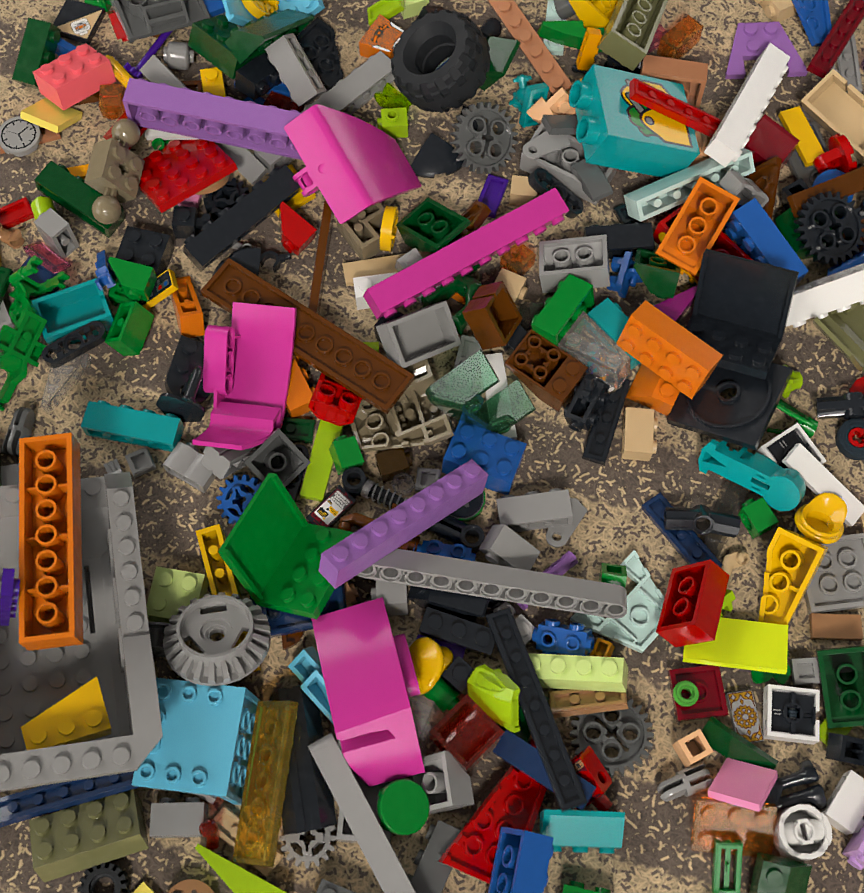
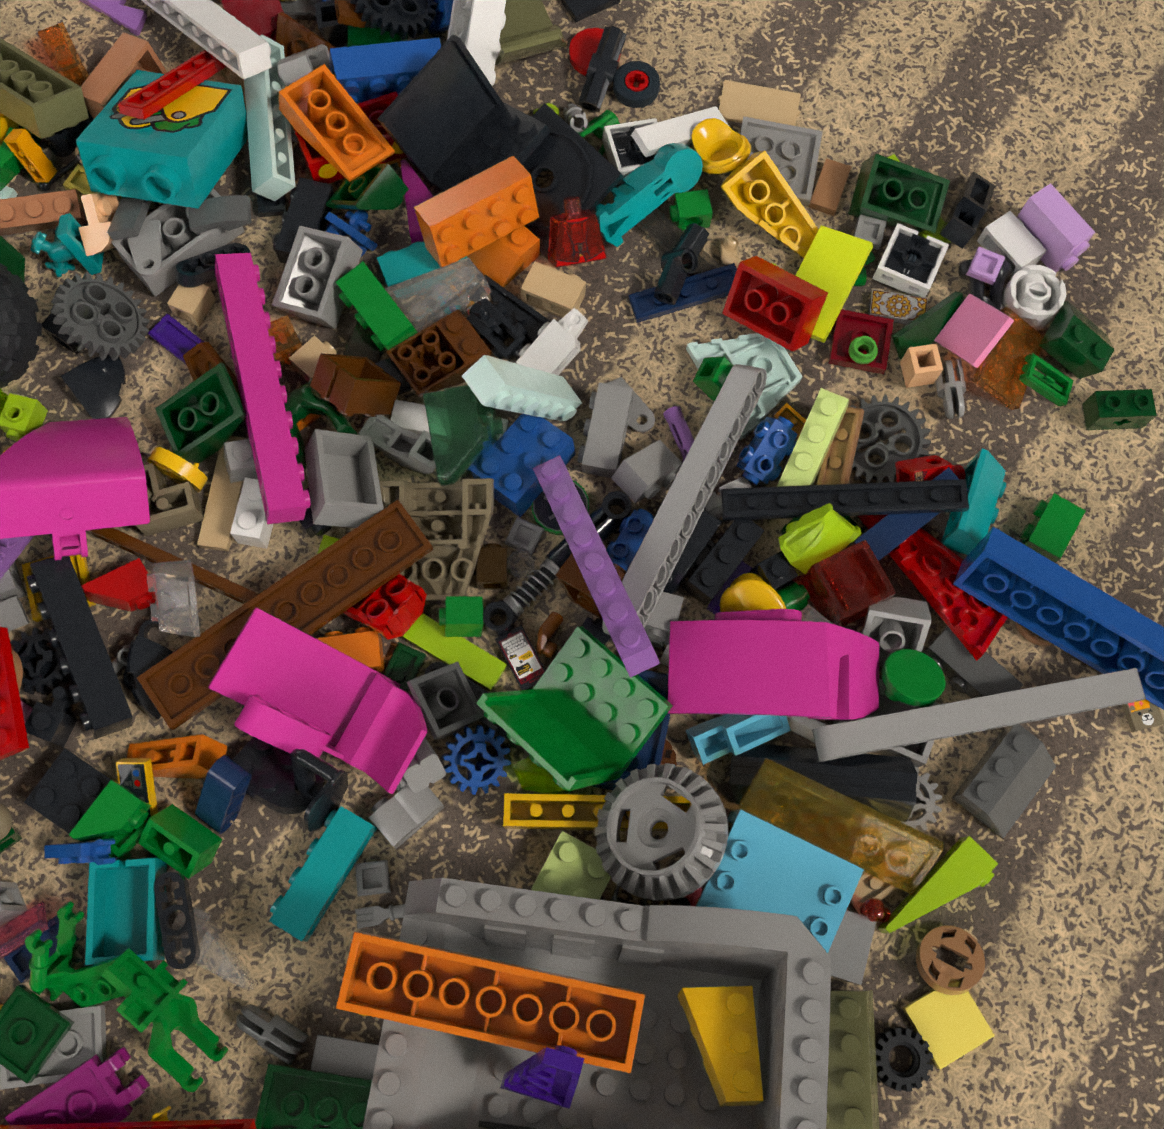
camera: 75 degrees left, 5 degrees up
(166, 341) = (222, 794): none -> dark blue beam
(293, 260) = (175, 598): none -> clear slope
(525, 426) = (521, 389): none -> light aqua brick
(581, 446) = (555, 344): none -> white hinge
(688, 432) = (574, 236): none -> clear red torso
(796, 399) = (578, 123): none -> light grey pin
(809, 778) = (985, 265): none -> lavender tile

